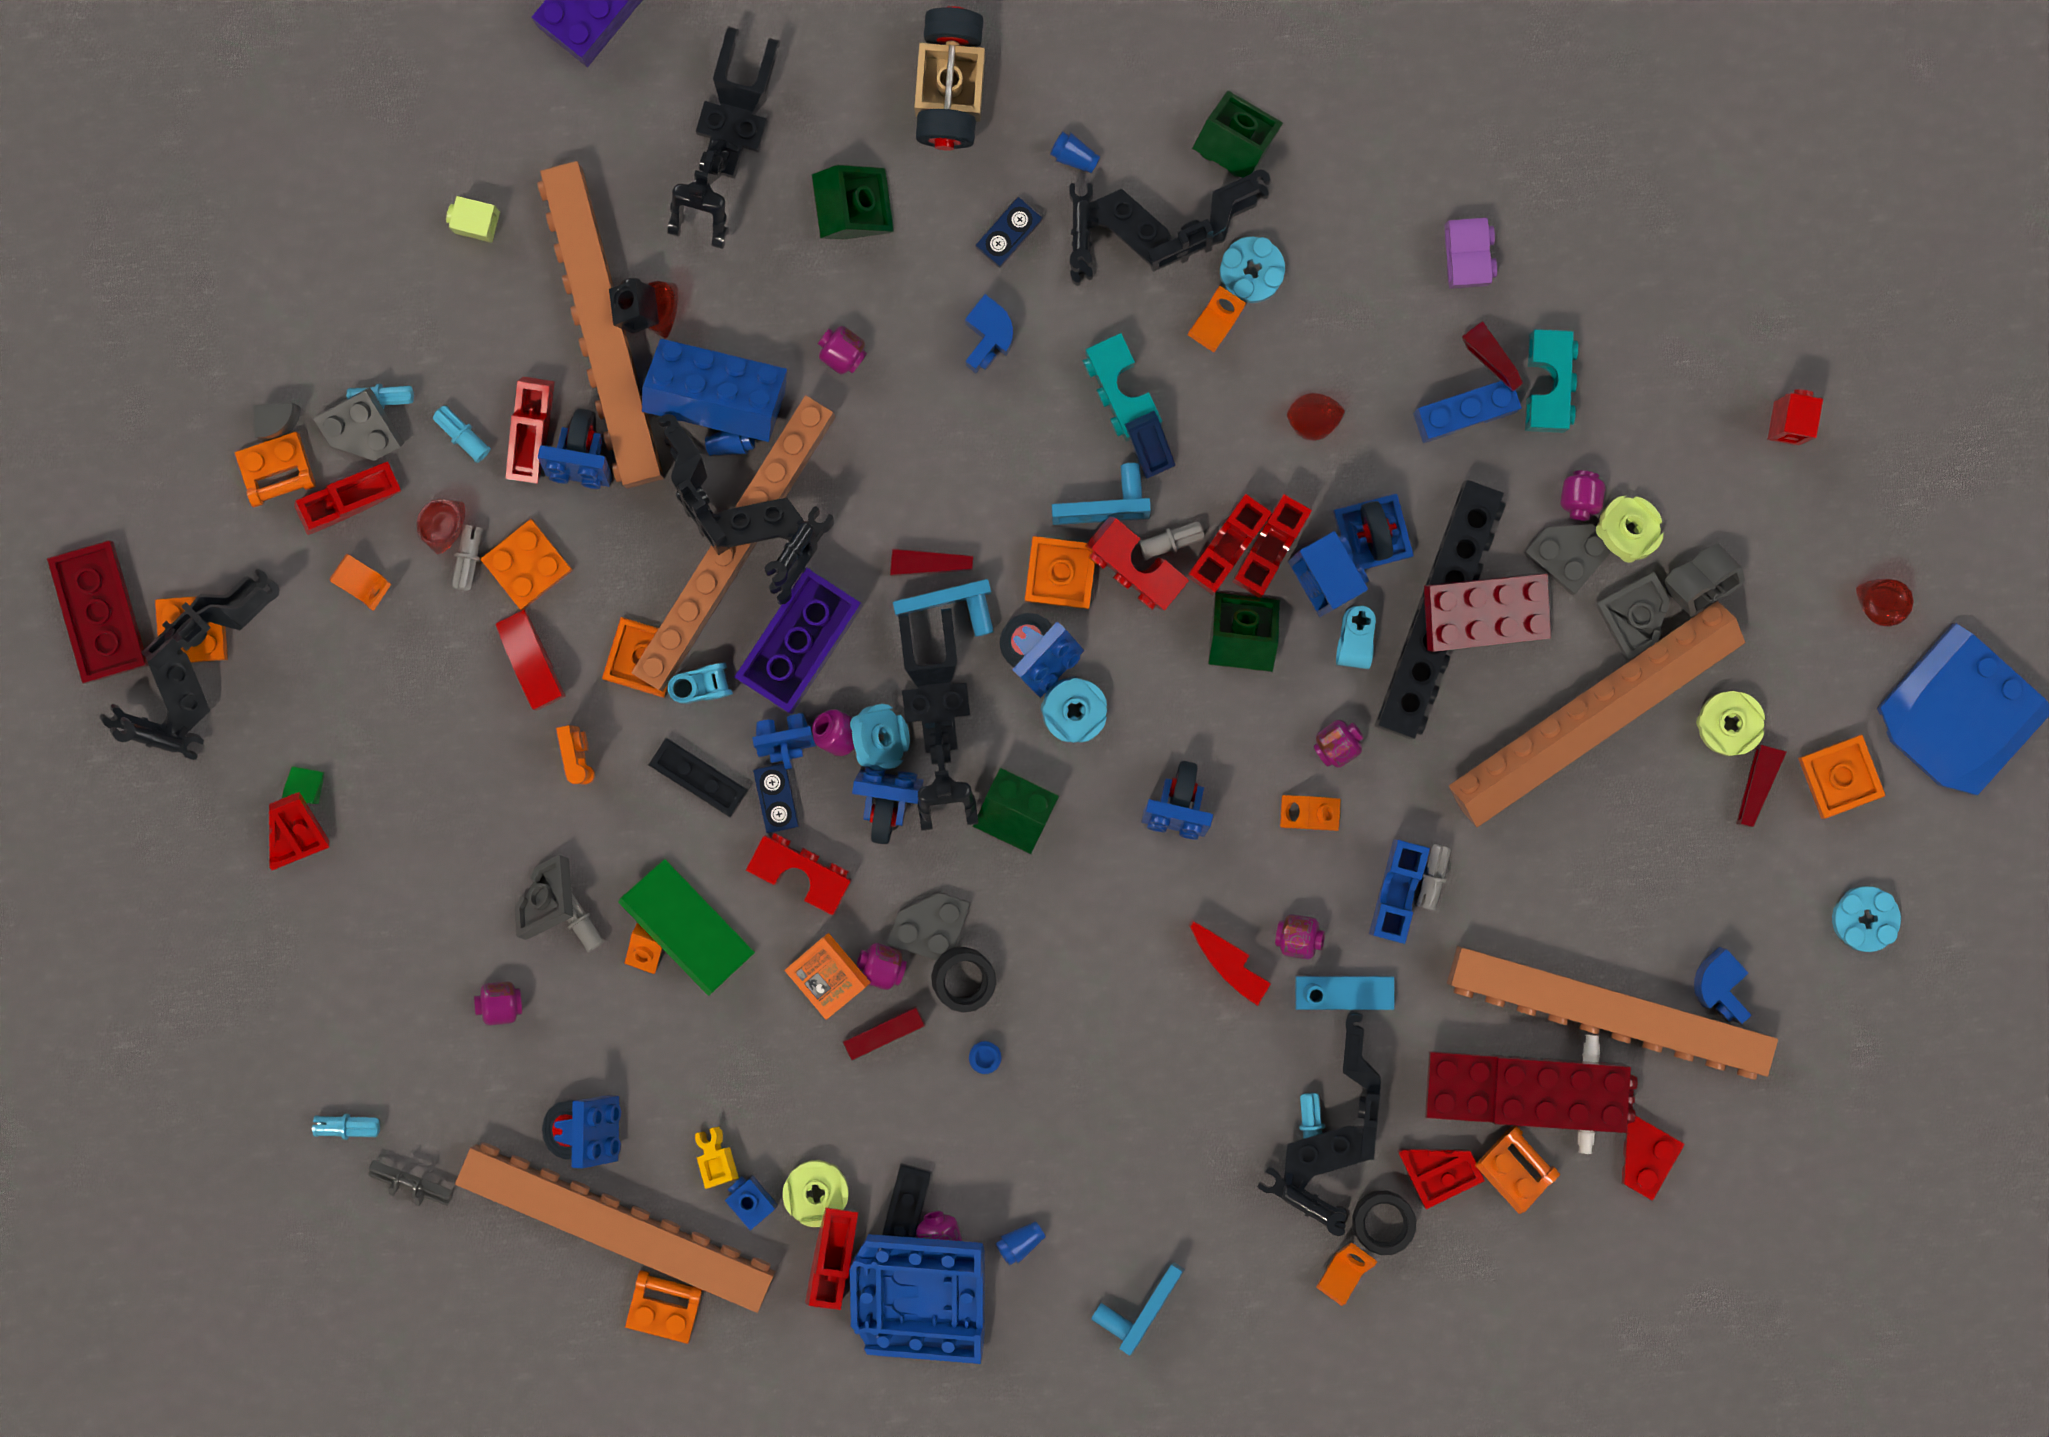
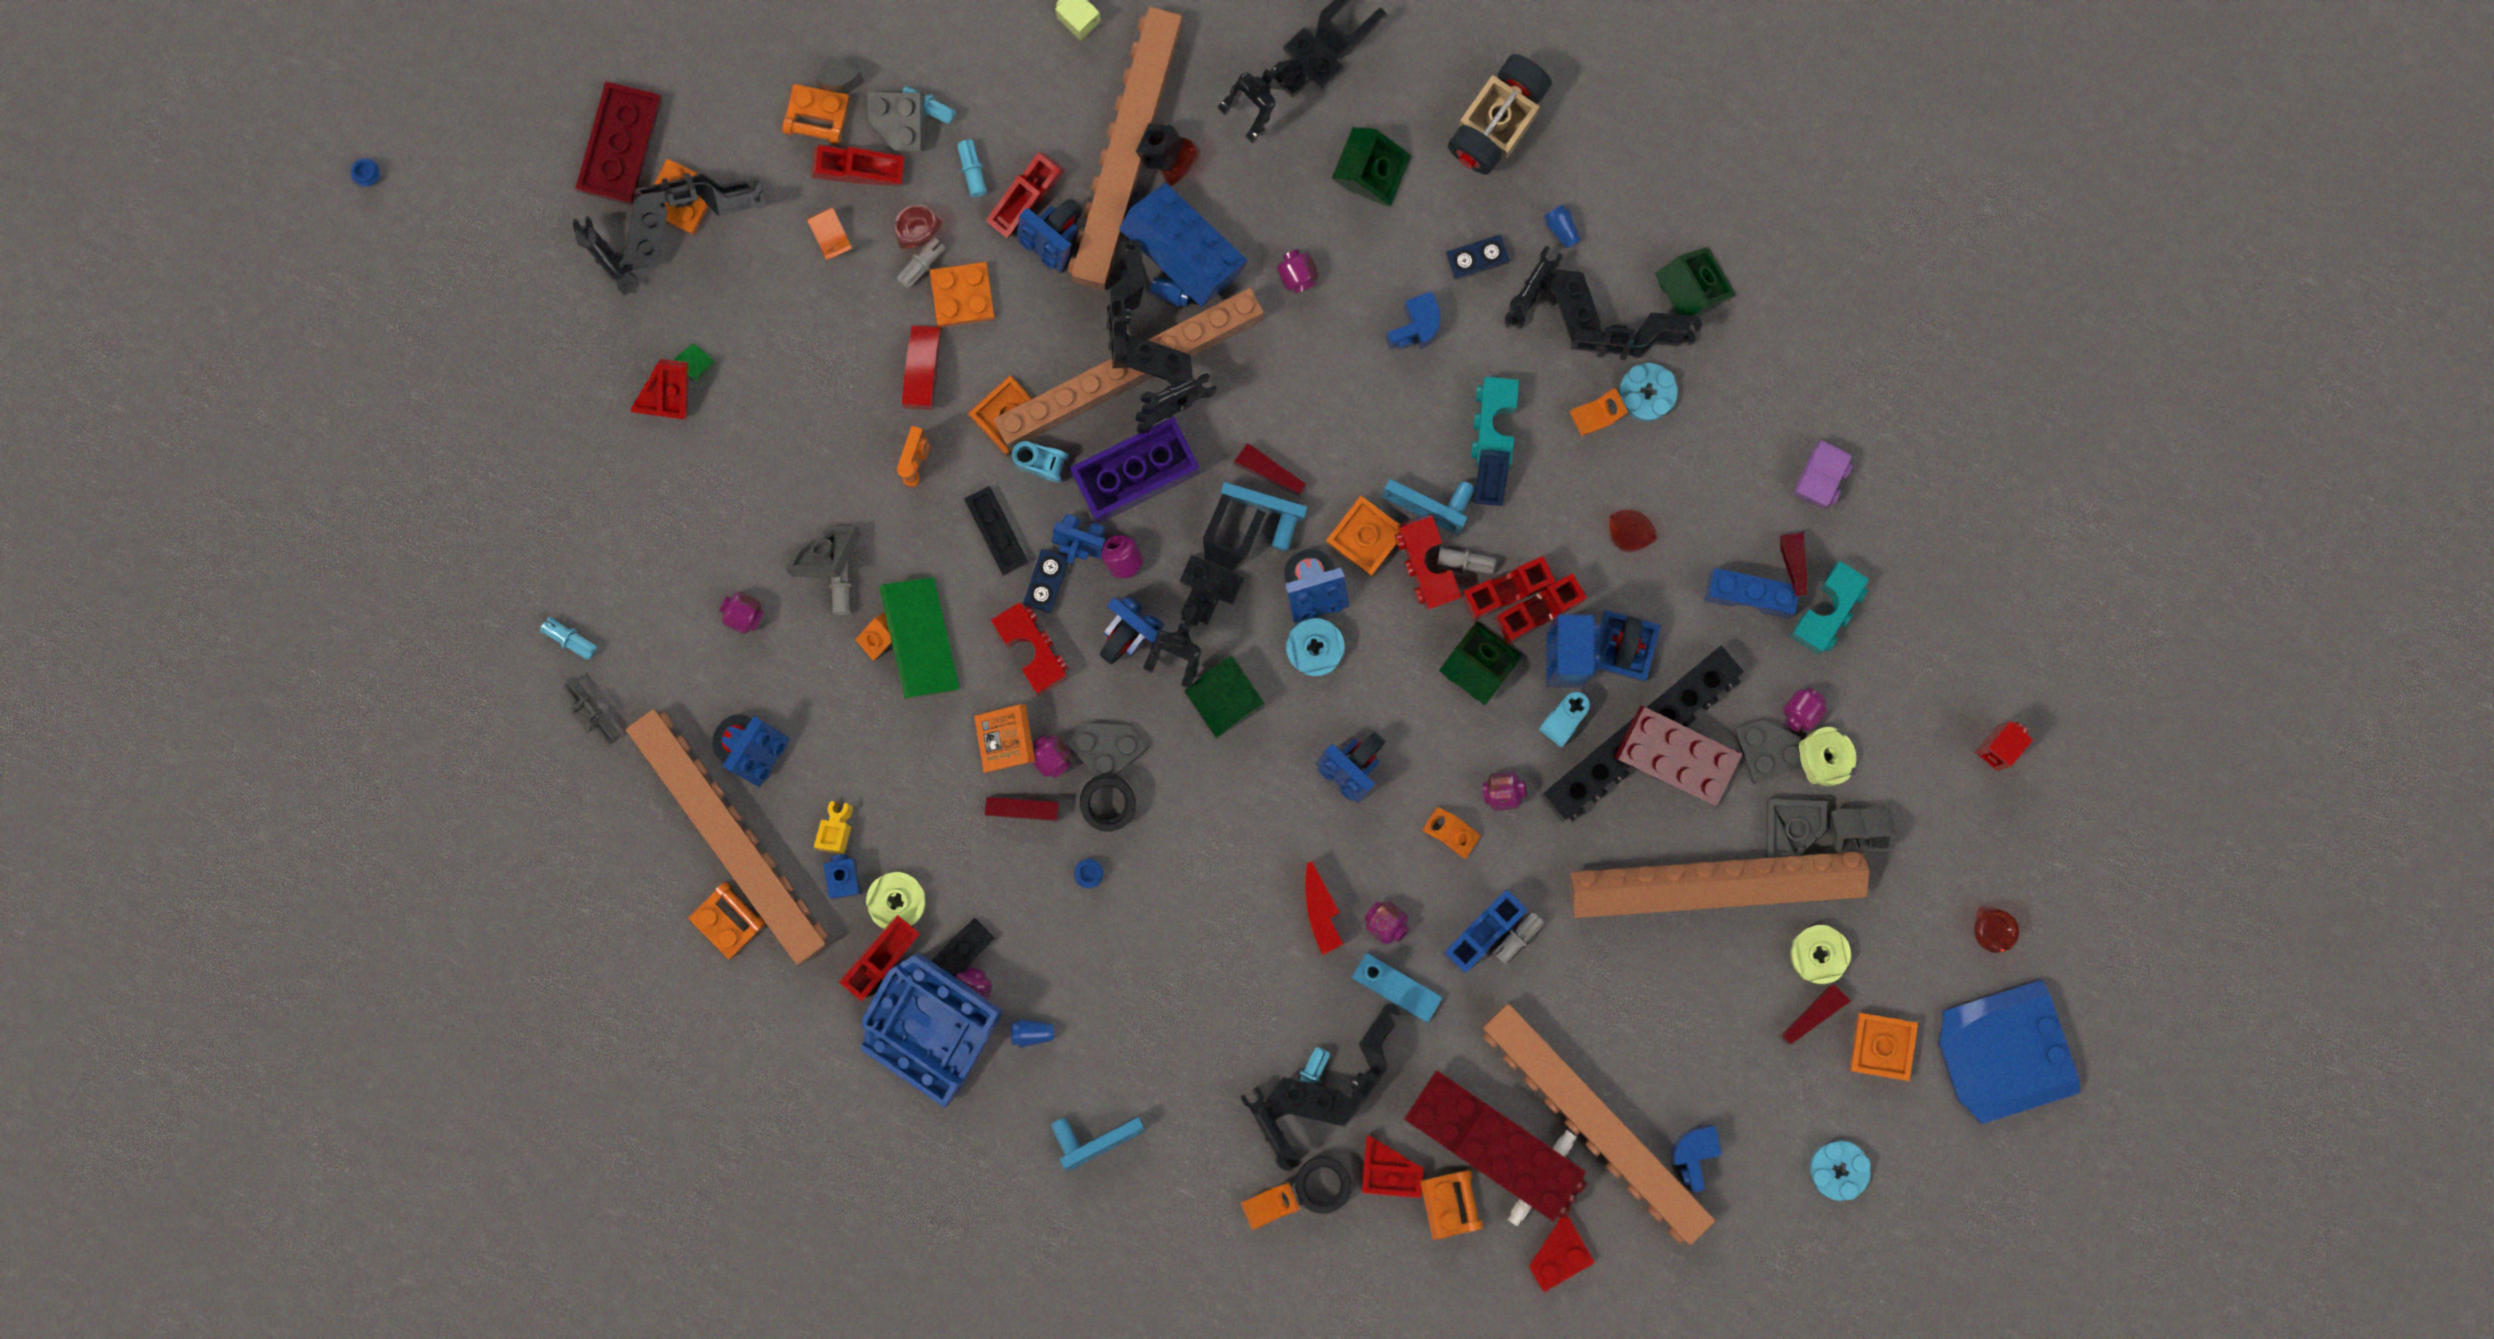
camera: 25 degrees right, 5 degrees down
(866, 742) = (1140, 579): medium azure plate -> none

